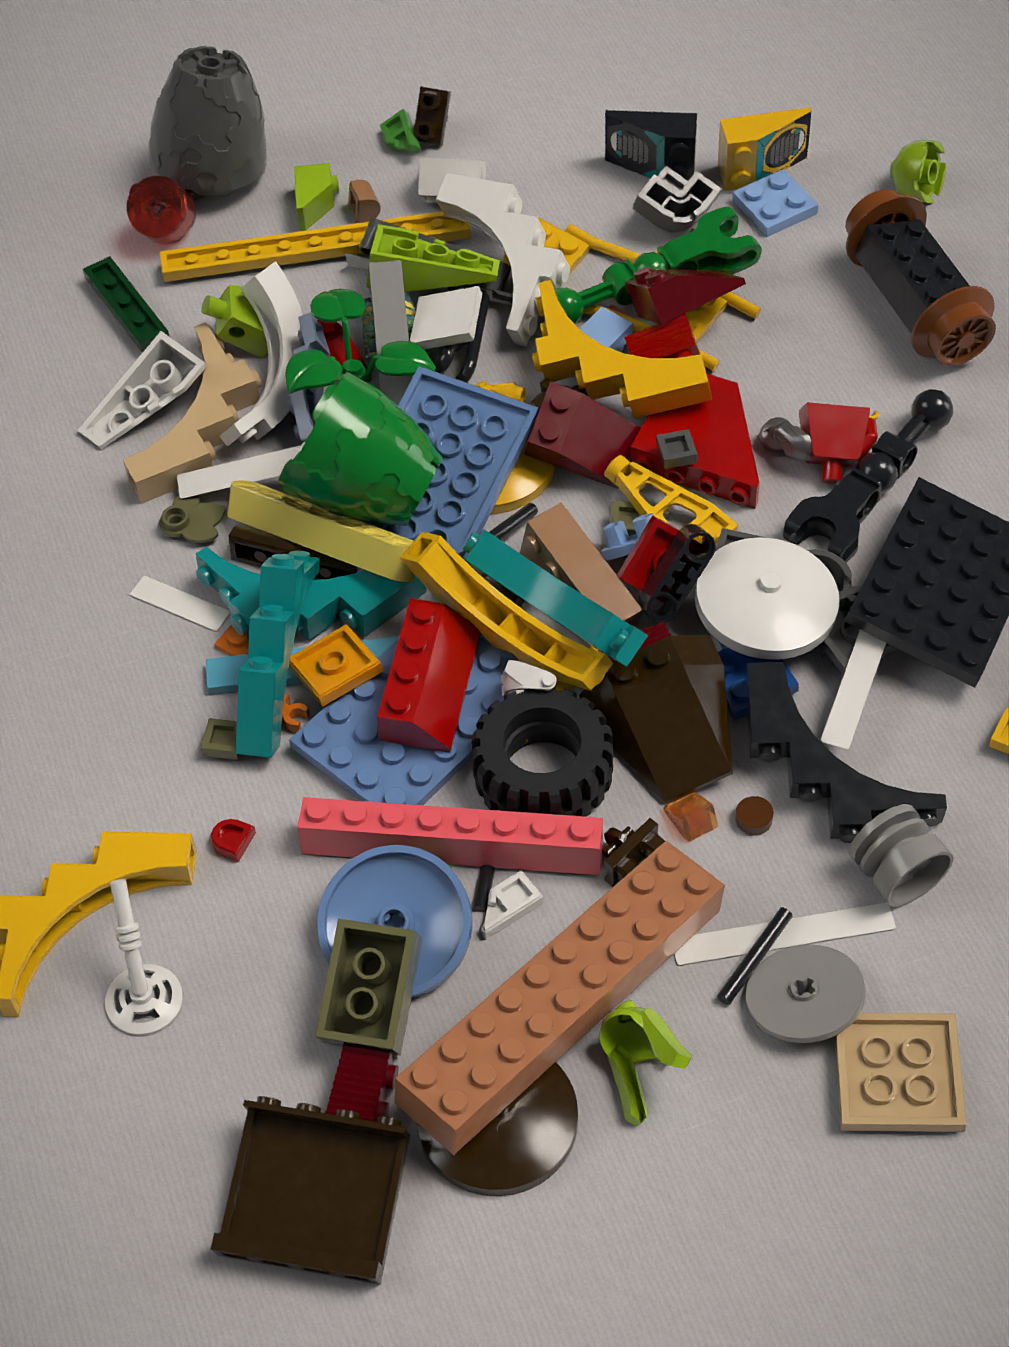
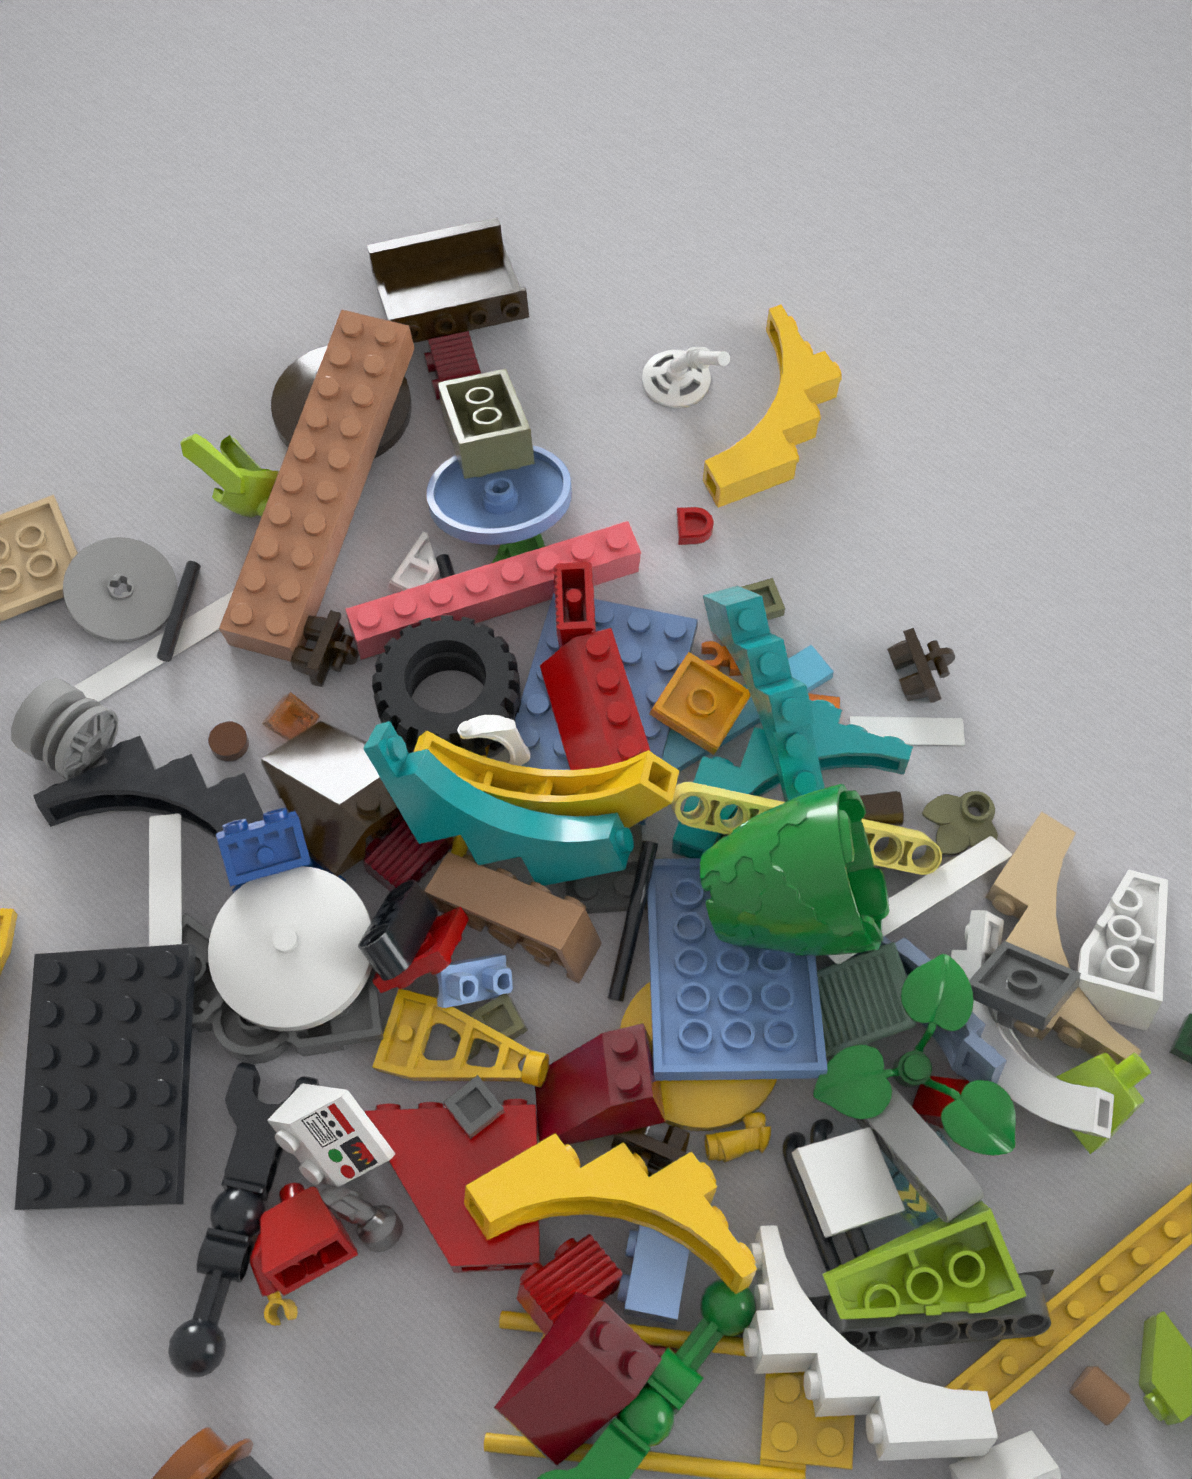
camera: 150 degrees right, 10 degrees up
(133, 646) = (911, 652): none -> dark brown hips
(246, 369) = (1023, 986): none -> dark grey hinge
(393, 762) = (574, 600): none -> red brick
(760, 660) = (262, 846): none -> blue bracket
(791, 474) = (329, 1135): none -> white slope

